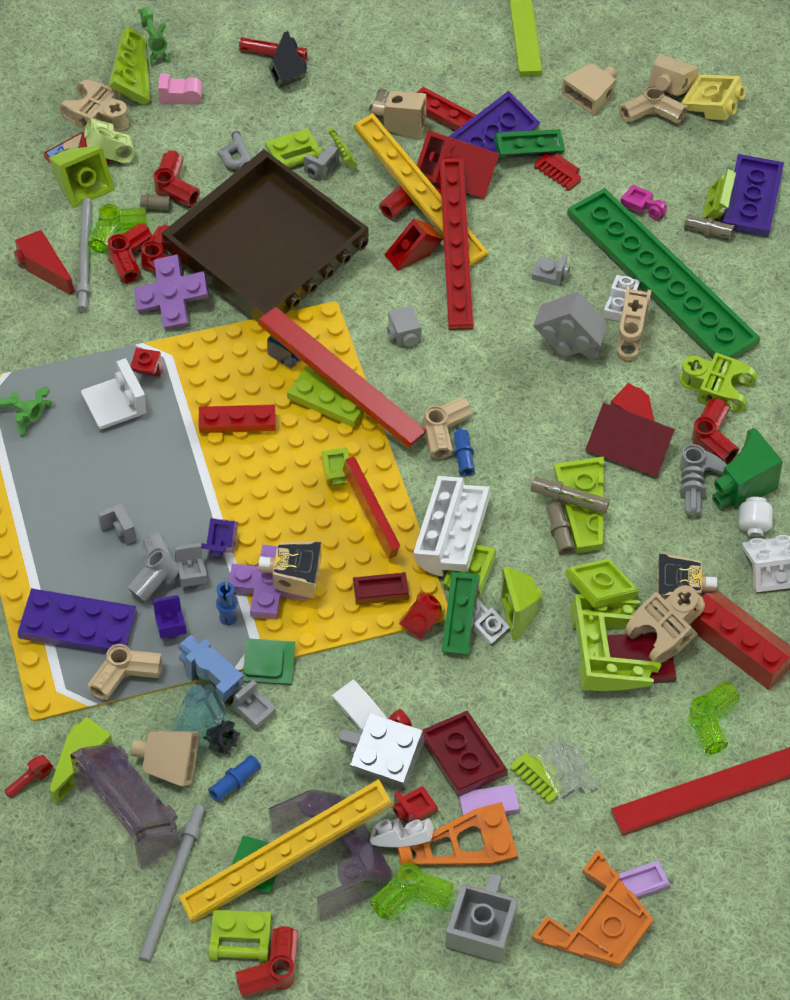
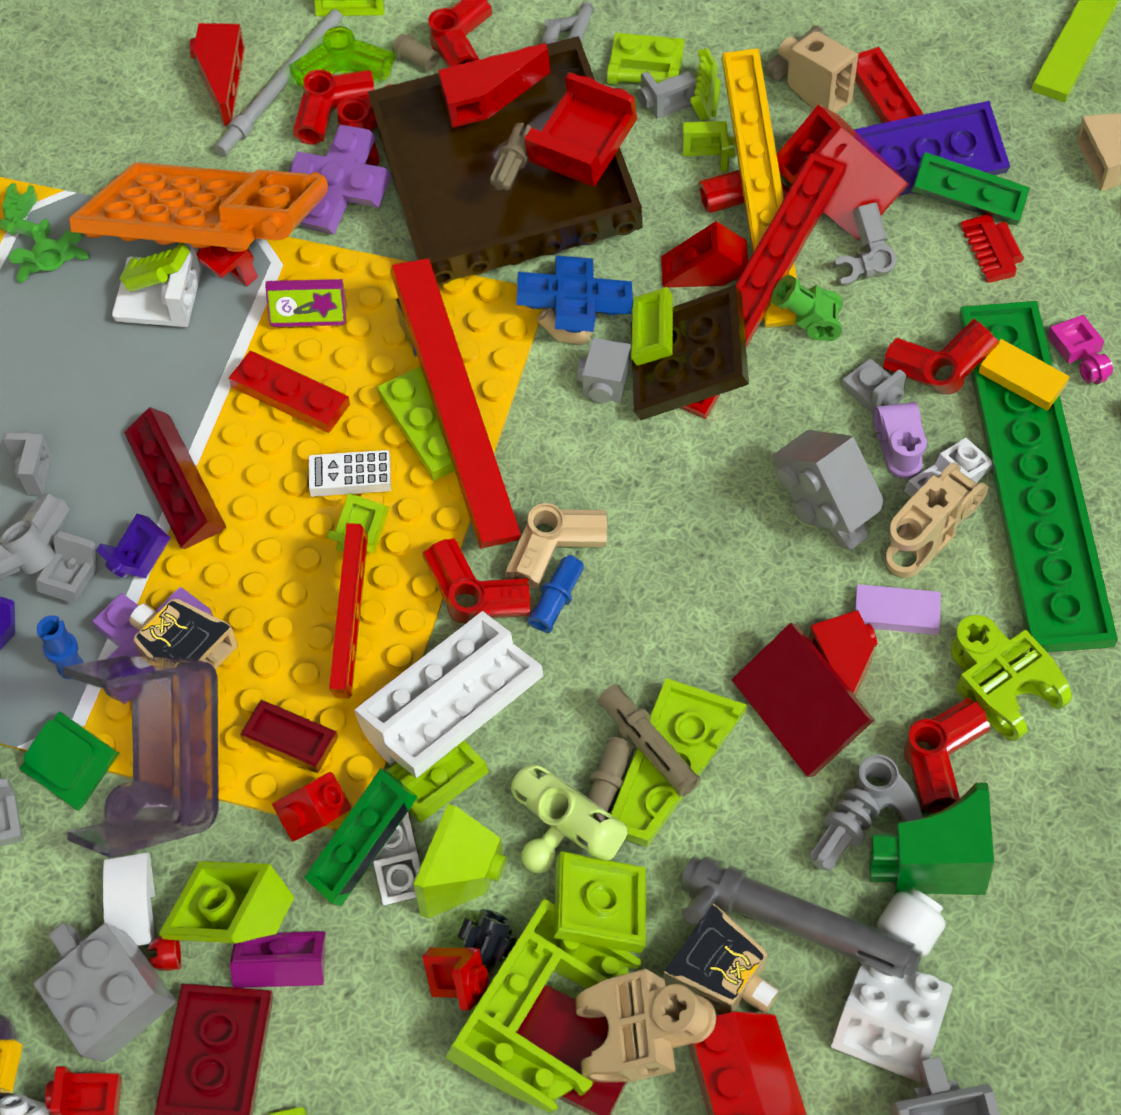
camera: 35 degrees right, 5 degrees up
(111, 390) = (153, 269): none -> lime piece
(113, 338) = (200, 205): none -> orange plate
(207, 494) = (174, 478): none -> dark red slope
(210, 366) = (306, 302): none -> slope
(232, 200) = (487, 85): none -> red slope
(278, 232) = (511, 159): none -> dark tan axle
(306, 444) = (349, 473): none -> white tile
(308, 199) = (583, 130): none -> red panel
(330, 622) = (172, 752): none -> windscreen
(351, 291) = (574, 293): none -> blue plate
(363, 318) = (547, 320): none -> tan arm
(367, 177) = (708, 139): none -> lime bracket
(409, 468) = (455, 578): none -> red piece
(415, 291) = (652, 326): none -> lime tile
(416, 677) = (229, 904): none -> lime slope
(446, 295) = (705, 356): none -> dark brown plate
(458, 696) = (279, 960): none -> magenta slope
(492, 242) = (814, 307): none -> bright green connector
(505, 201) = (879, 258): none -> light grey bar
(540, 552) = (548, 800): none -> yellowish green piece
(557, 650) = (456, 974): none -> red bracket
(558, 627) = (490, 934): none -> black gear
(586, 285) = (901, 438): none -> lavender piece
(588, 232) = (961, 353): none -> red piece
(626, 228) = (1024, 374): none -> yellow tile
(643, 375) = (899, 609): none -> lavender tile
(702, 539) = (736, 892): none -> flat silver cylinder

